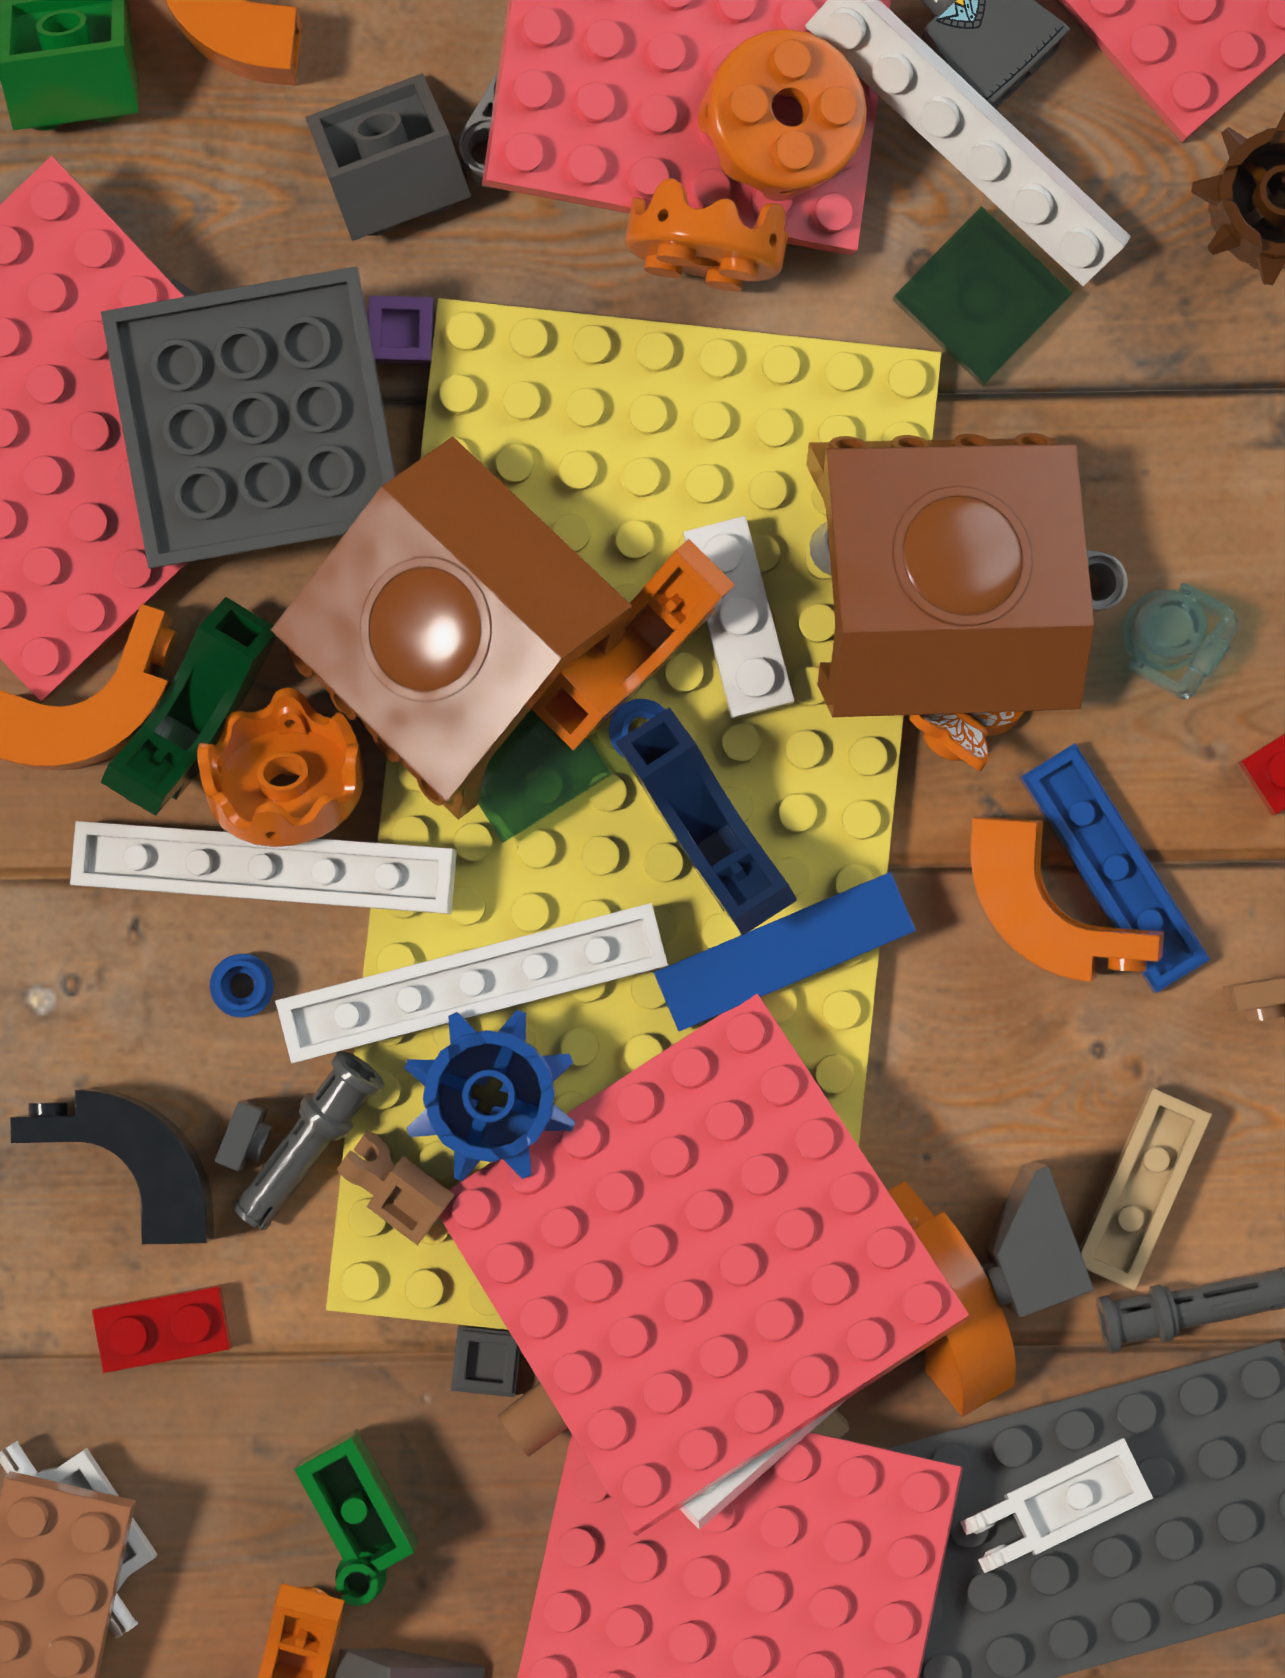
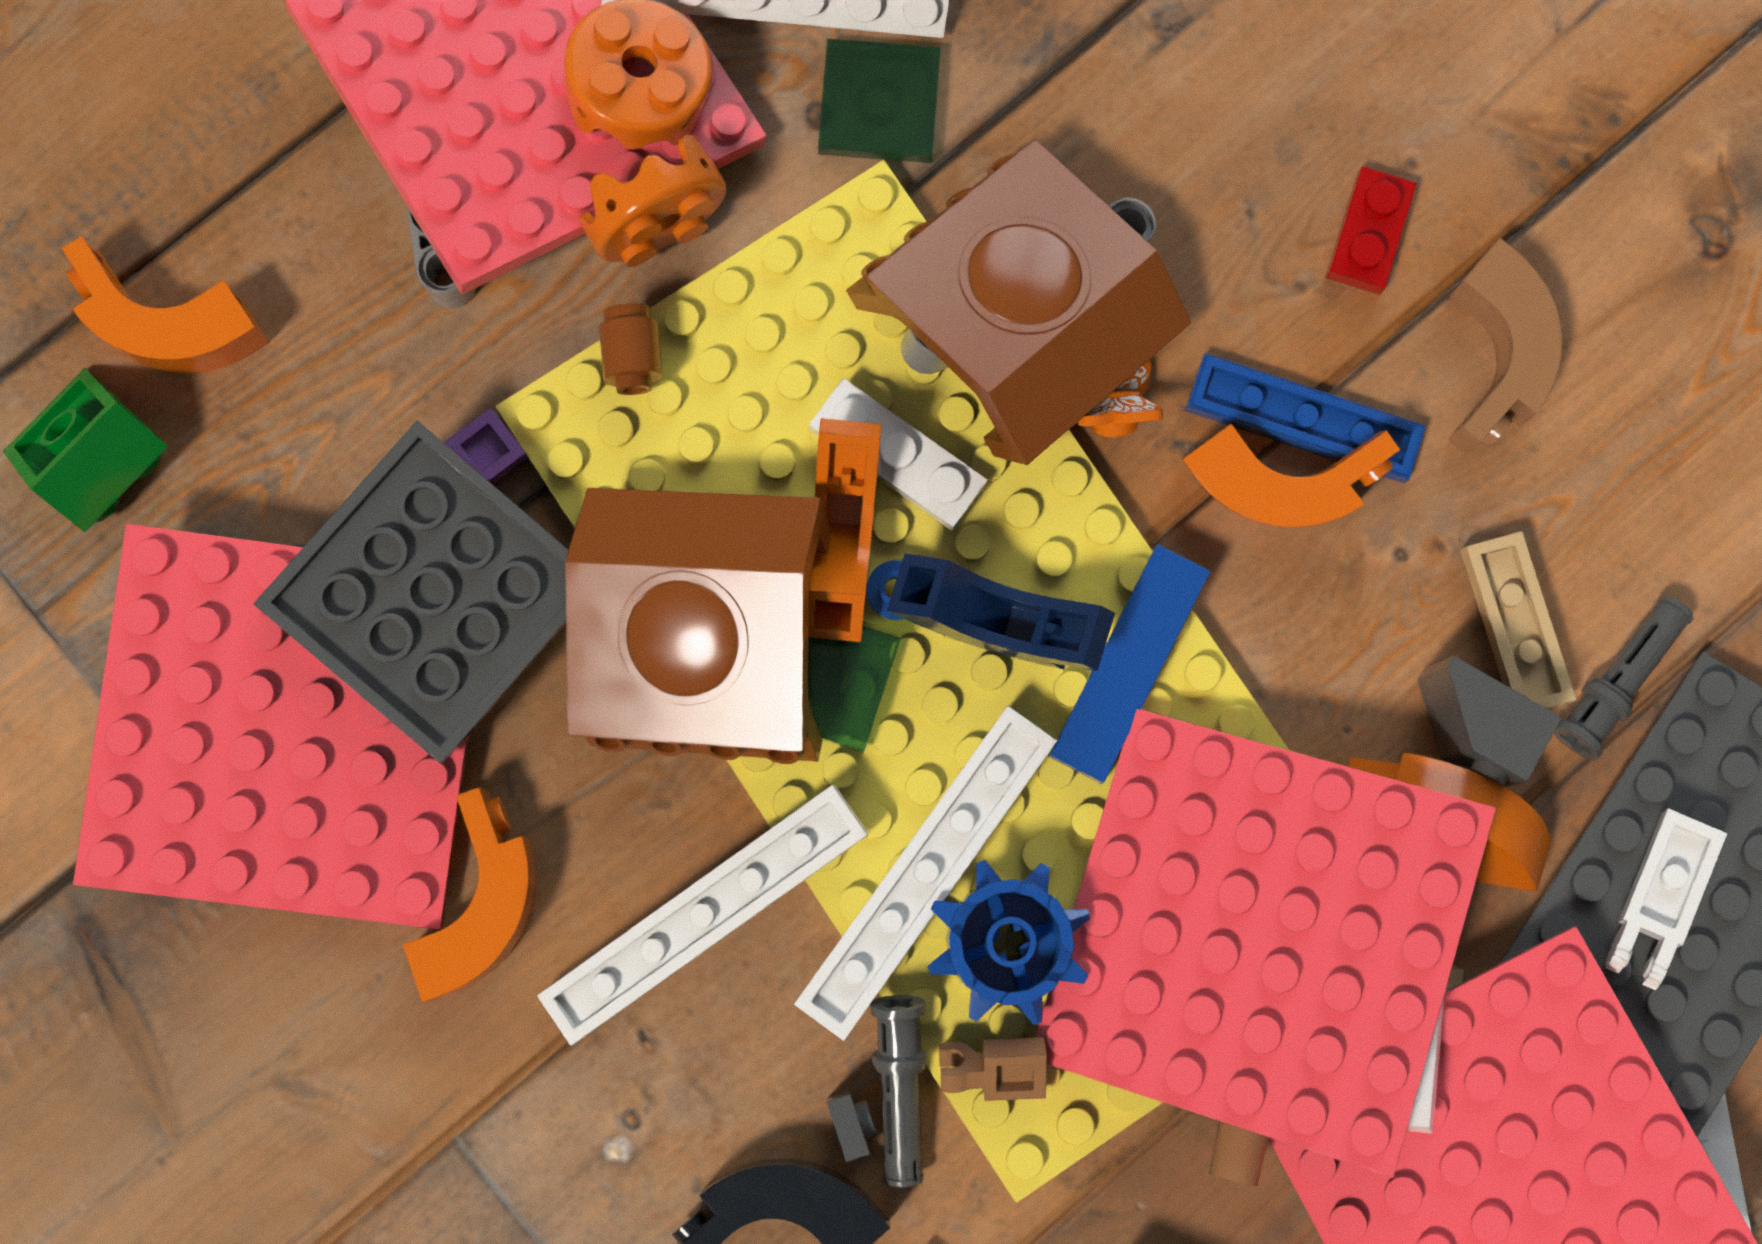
camera: 40 degrees left, 5 degrees down
(206, 689) = (558, 841): dark green arch -> none
(222, 979) = (744, 1029): blue plate -> none
(289, 741) = (644, 809): orange plate -> none
(388, 157) = (379, 335): dark grey slope -> none
(485, 1361) = (1162, 1142): dark grey tile -> none
(587, 345) = (630, 348): none -> dark orange brick
(1169, 632) = (1205, 220): clear light blue piece -> none

